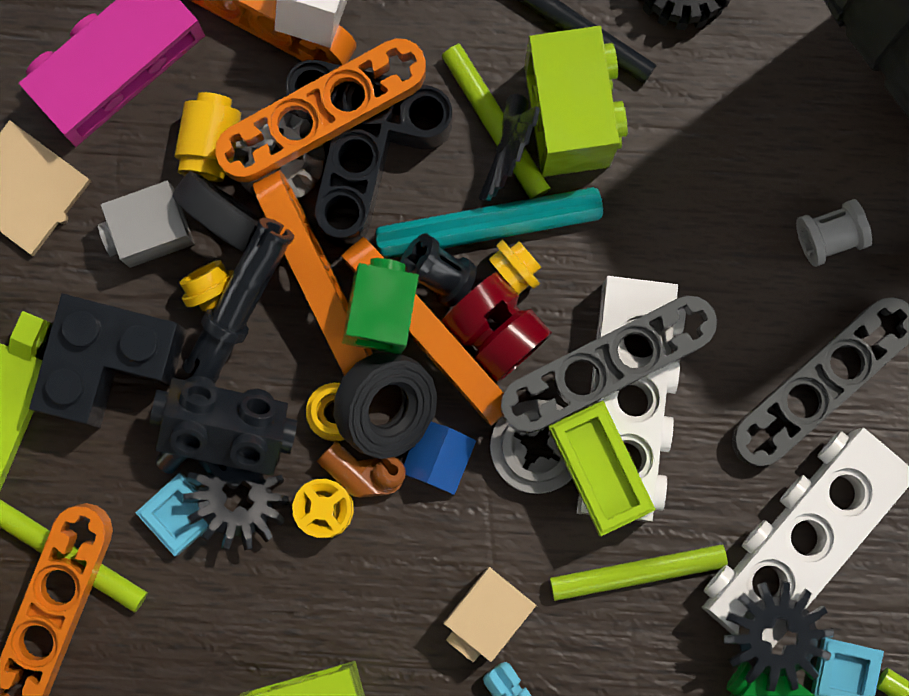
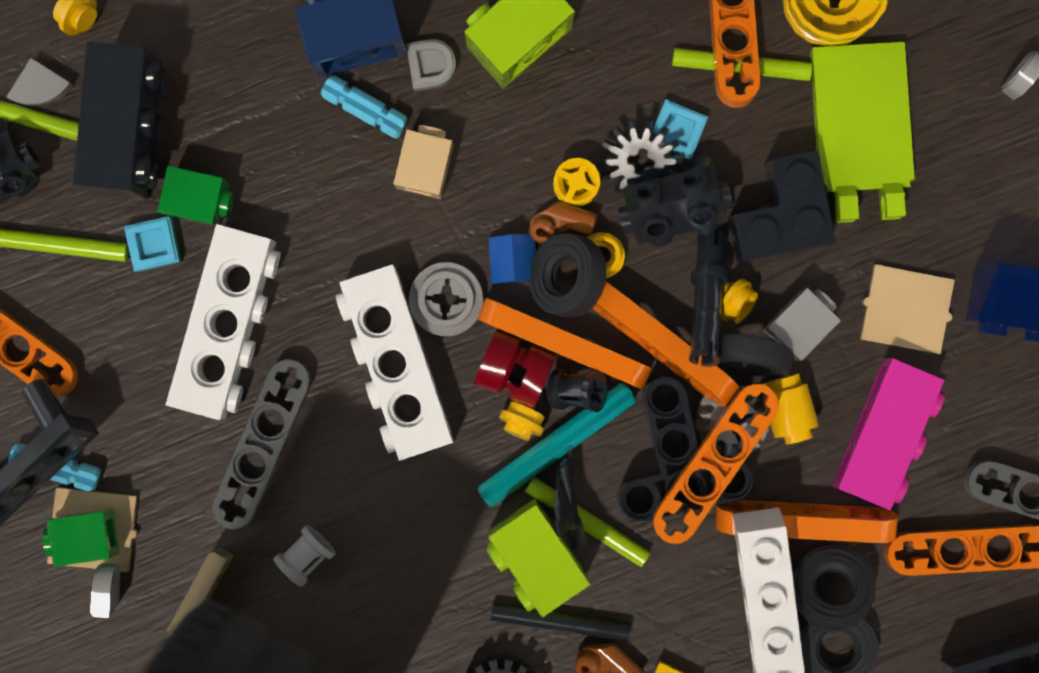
camera: 155 degrees right, 5 degrees up
(380, 306) = (603, 340): green brick -> none
(601, 468) = (392, 301): lime tile -> none
(605, 359) = (426, 380): dark grey beam -> none
(638, 572) = (332, 245): lime bar -> none
(759, 651) = (230, 251): black gear -> none

